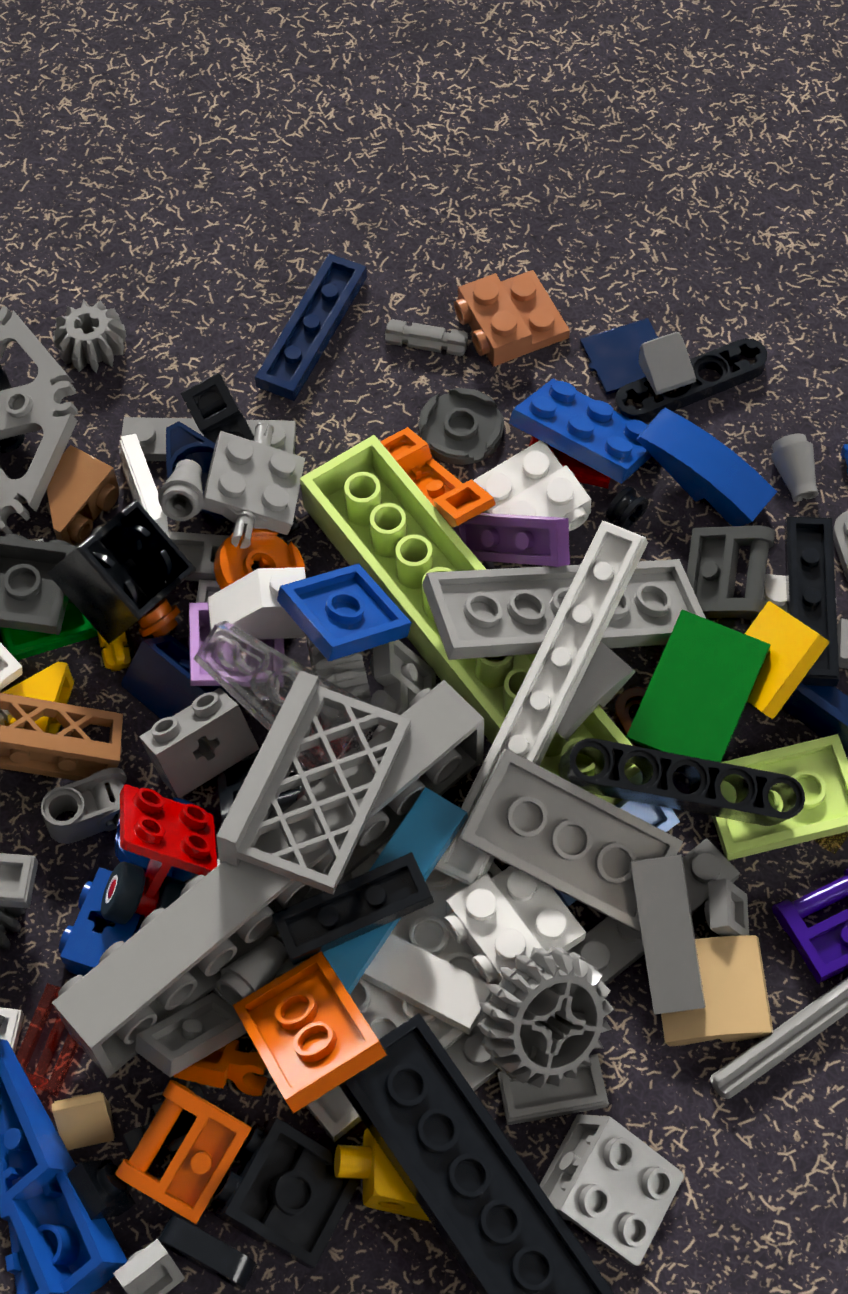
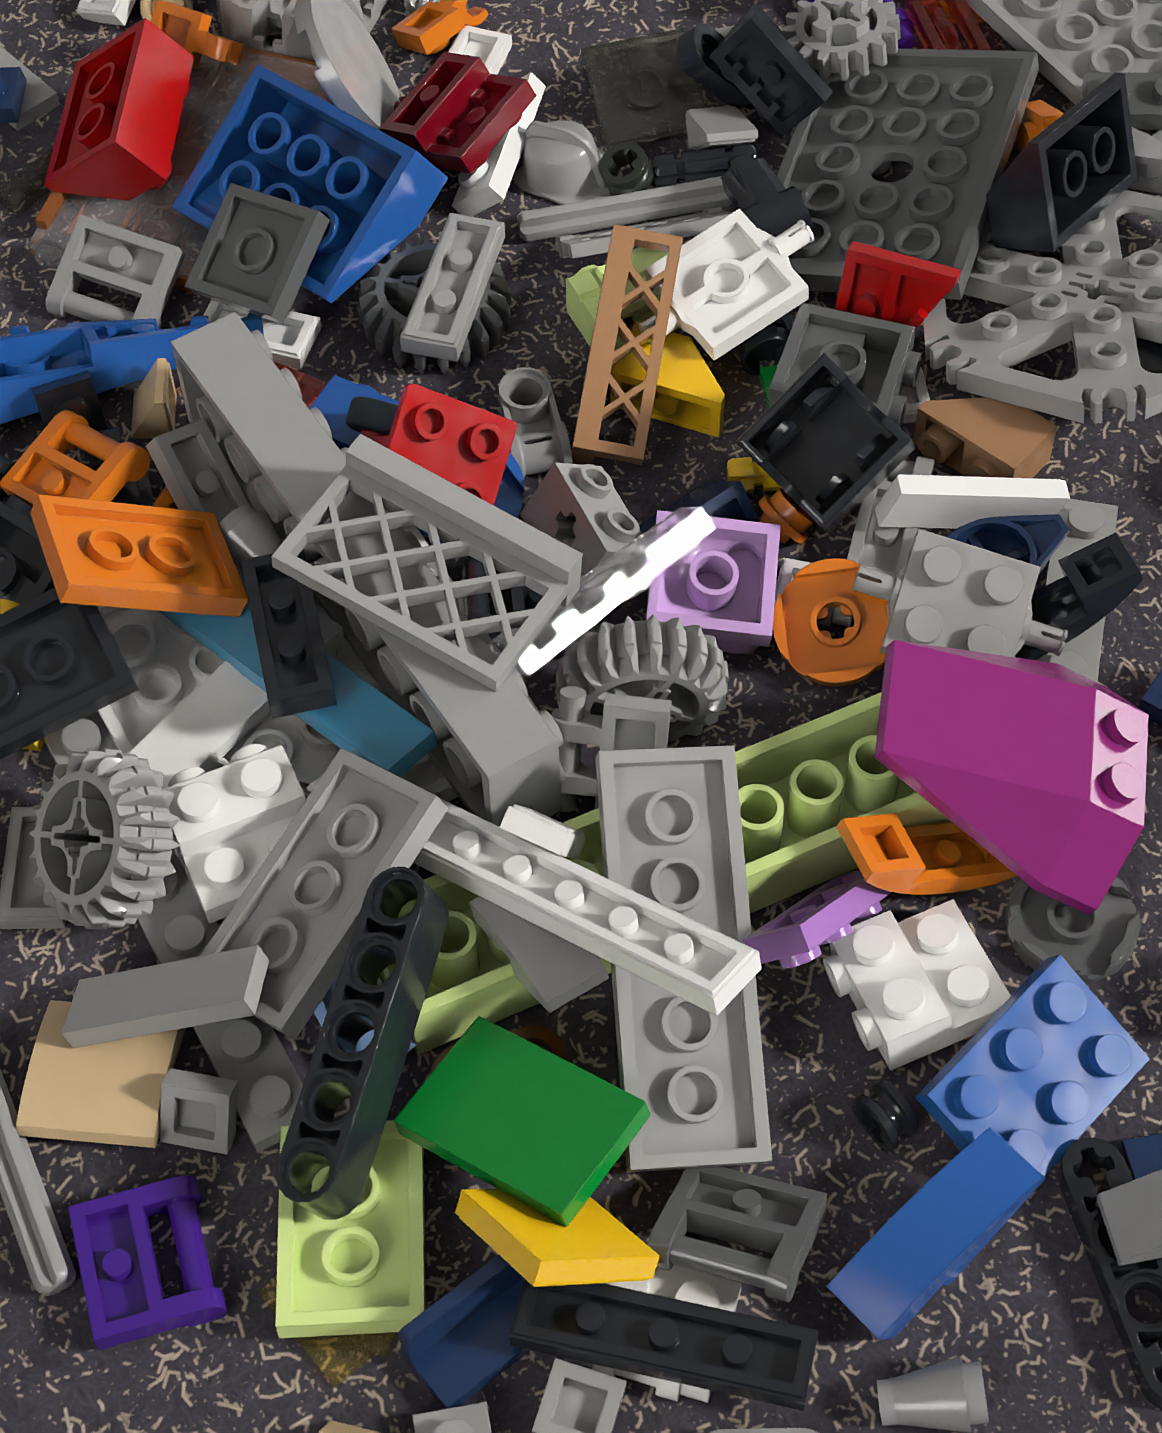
camera: 100 degrees right, 5 degrees down
(182, 492) = (938, 508): light grey cone -> none
(254, 606) = (750, 597): white slope -> none
(343, 611) = (691, 644): blue plate -> none
(371, 429) = (1020, 761): none -> magenta wedge
(502, 694) = (543, 831): none -> white tile

